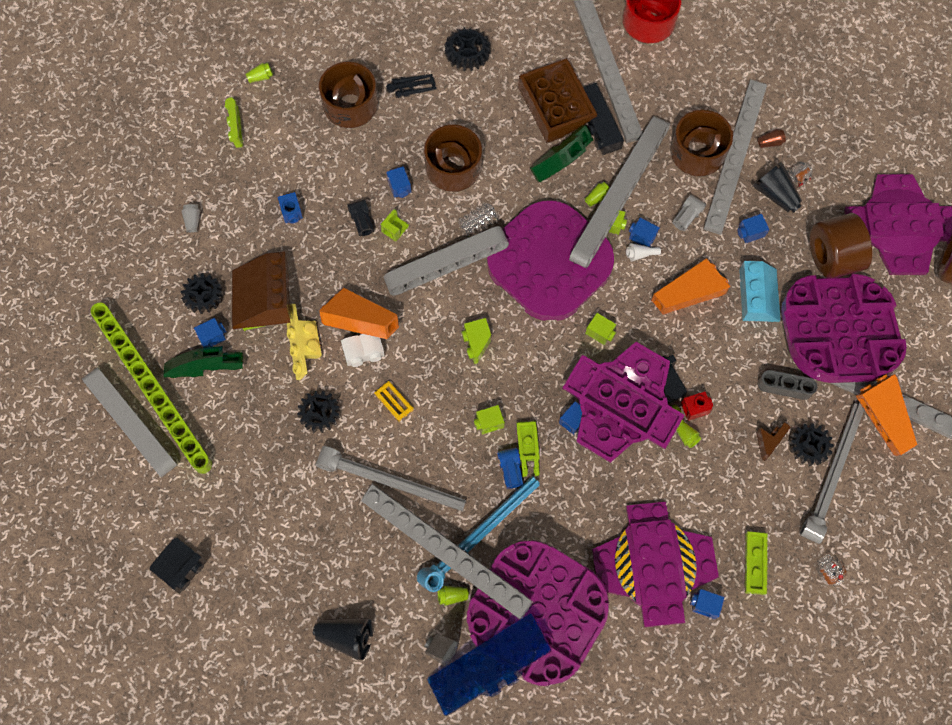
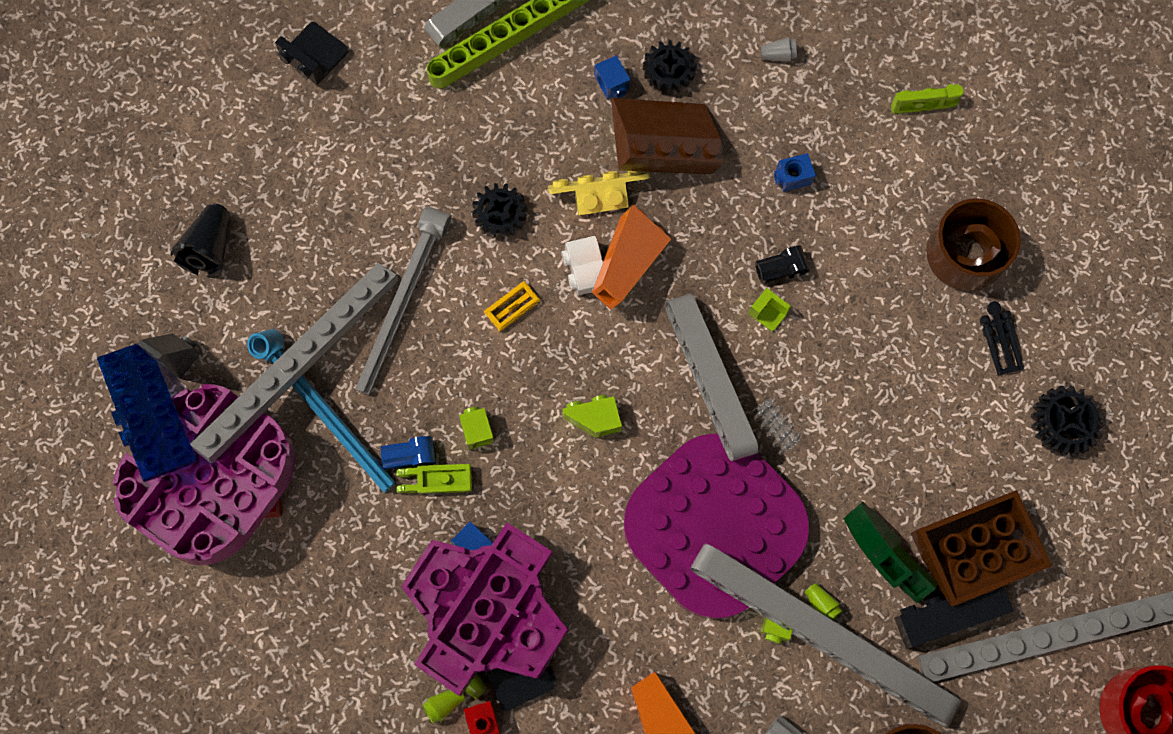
camera: 90 degrees right, 5 degrees up
(196, 361) = (573, 70): dark green slope -> none
(260, 73) = (1009, 131): lime cone -> none
(398, 182) = (836, 316): blue brick -> none
(450, 595) = (245, 370): lime cone -> none
(453, 142) = (887, 366): reddish brown piece -> none
(601, 329) = (604, 592): lime brick -> none
(637, 252) = (728, 658): white cone -> none
(643, 232) = (758, 667): blue brick -> none
(655, 564) = (263, 643): magenta plate -> none
(707, 603) = (199, 707): blue brick -> none

